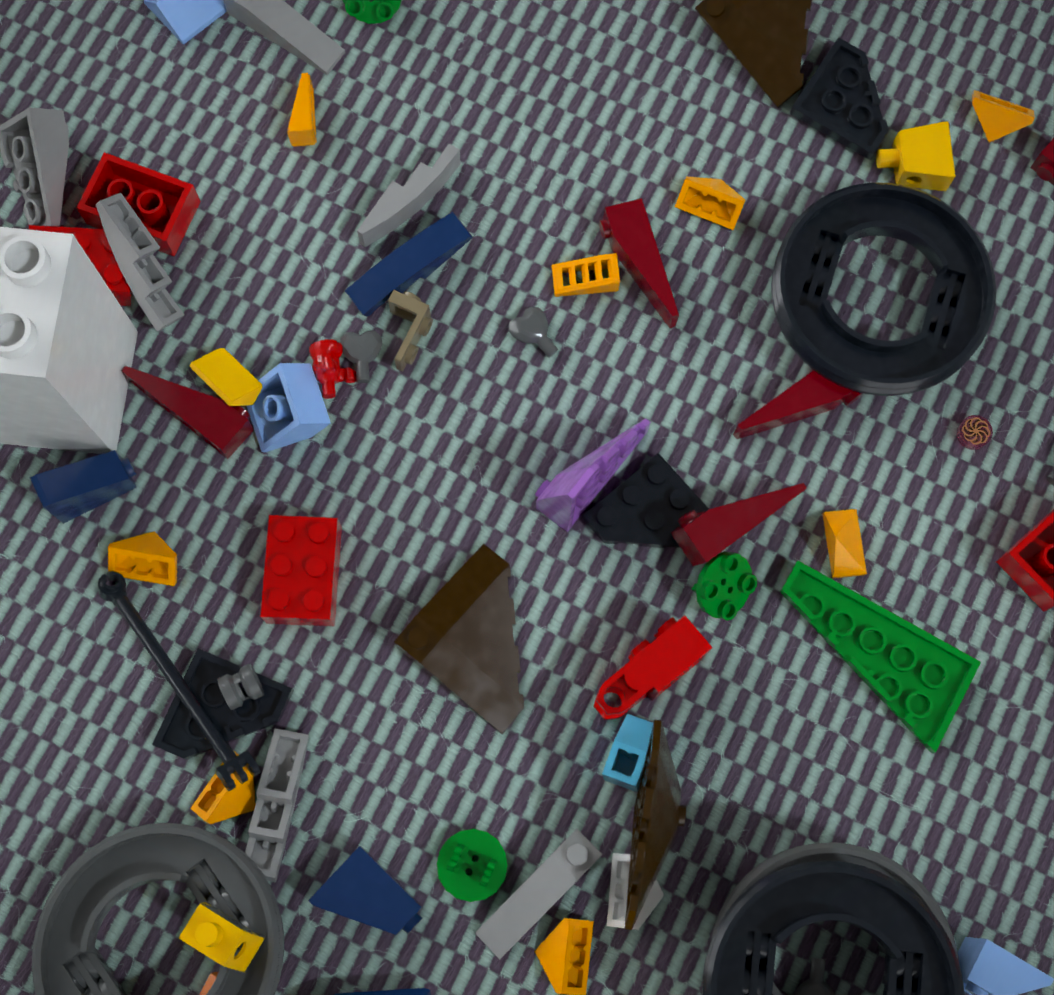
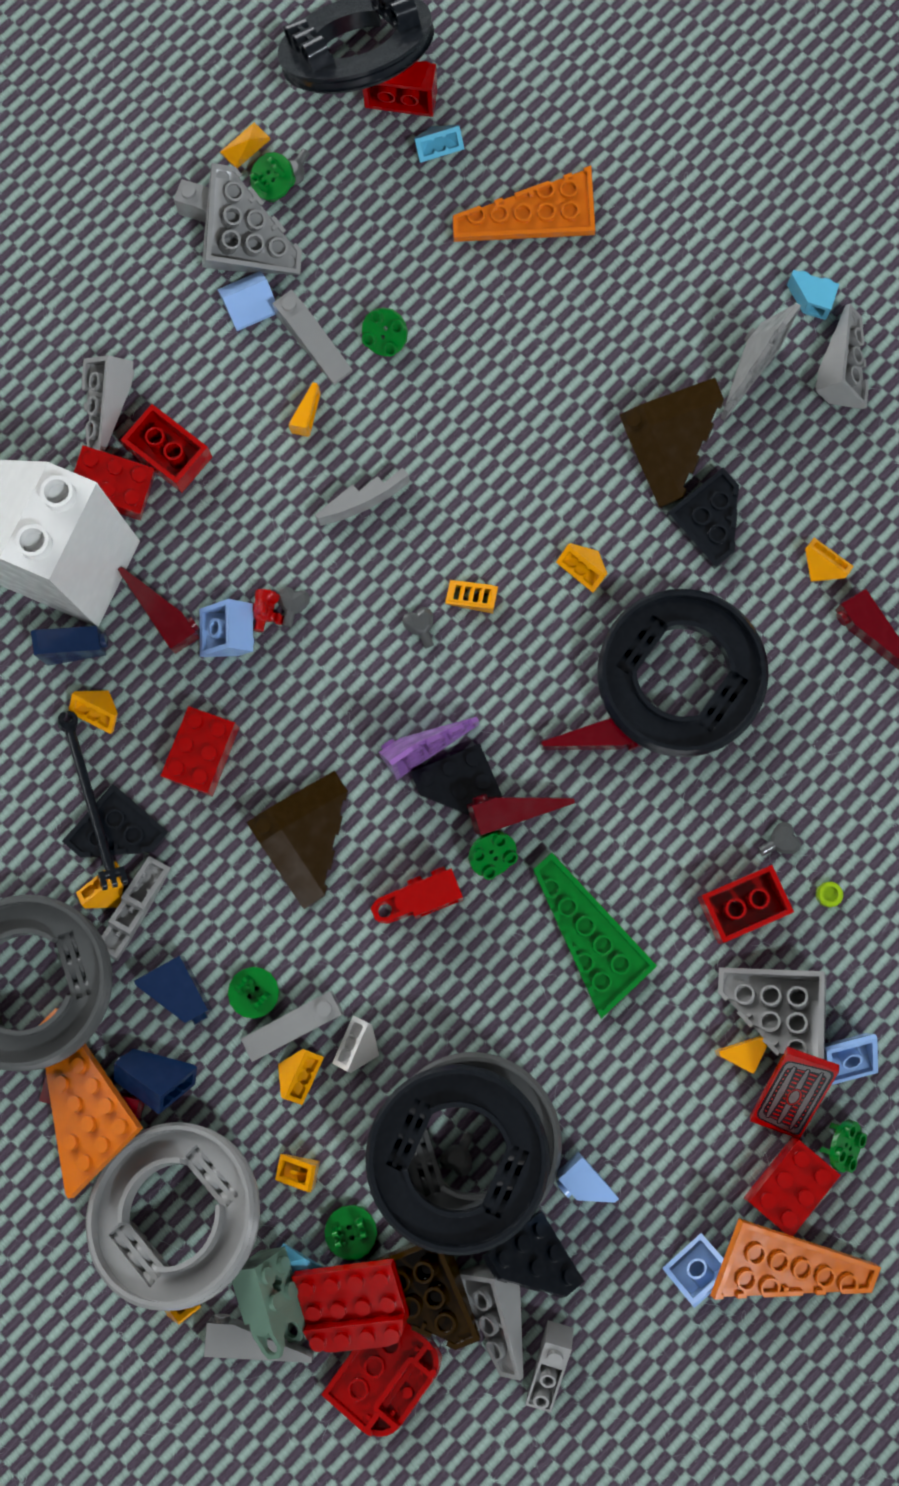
camera: 25 degrees right, 5 degrees up
(134, 253) = (151, 494): light grey slope -> none
(220, 936) = (62, 985): yellow torso -> none
(227, 378) = (190, 596): yellow slope -> none
(232, 688) = (132, 820): dark grey wheel -> none
(408, 263) = (346, 549): dark blue slope -> none
(412, 309) = (340, 598): dark tan bracket -> none
(628, 753) = (387, 950): medium azure slope -> none
(633, 241) = (514, 582): dark red slope -> none
(654, 821) = (383, 1006): dark brown slope -> none
(844, 543) = (592, 850): light orange slope -> none
(921, 157) = (751, 579): yellow torso -> none
(974, 432) = (716, 798): tile -> none

